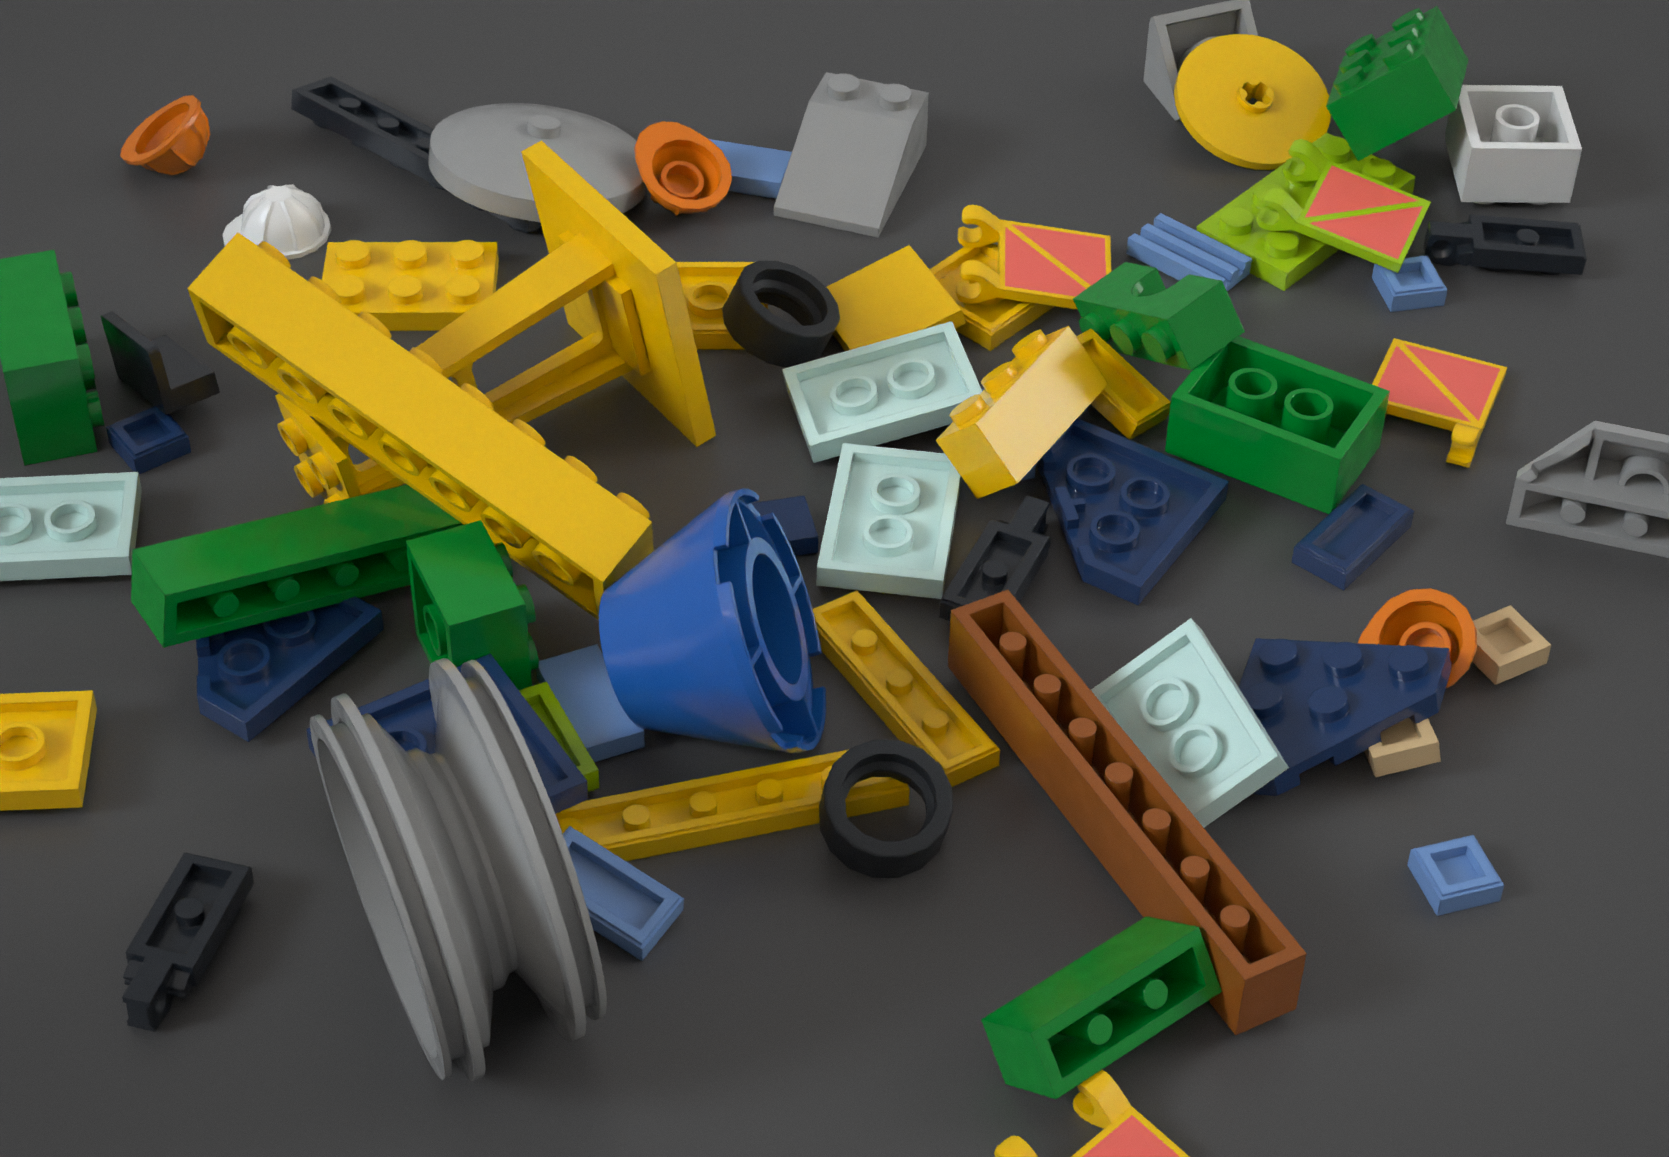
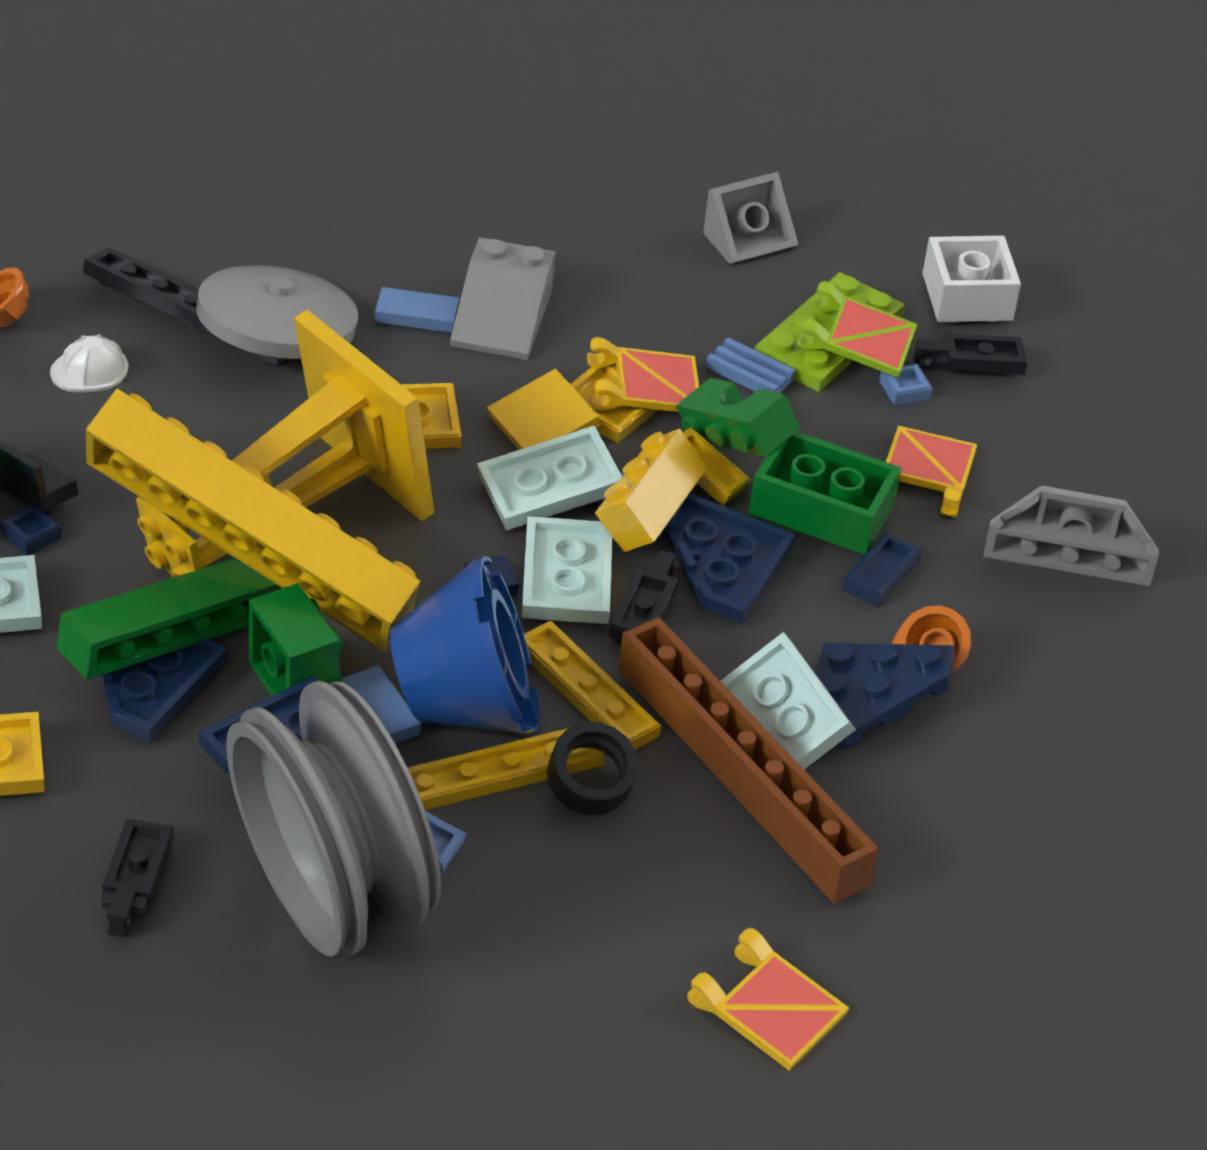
camera: 10 degrees left, 0 degrees up
(412, 281) = (208, 405): yellow plate -> none
(682, 168) = (383, 314): orange piece -> none
(791, 291) = (460, 436): black tyre -> none
(1101, 1006) = (749, 889): green brick -> none
(1230, 71) = (765, 230): yellow piece -> none
(1397, 82) = (889, 235): green brick -> none
(1404, 748) = (927, 713): tan plate -> none
(1455, 875) = (966, 795): medium blue tile -> none
(1508, 645) = (991, 641): tan plate -> none

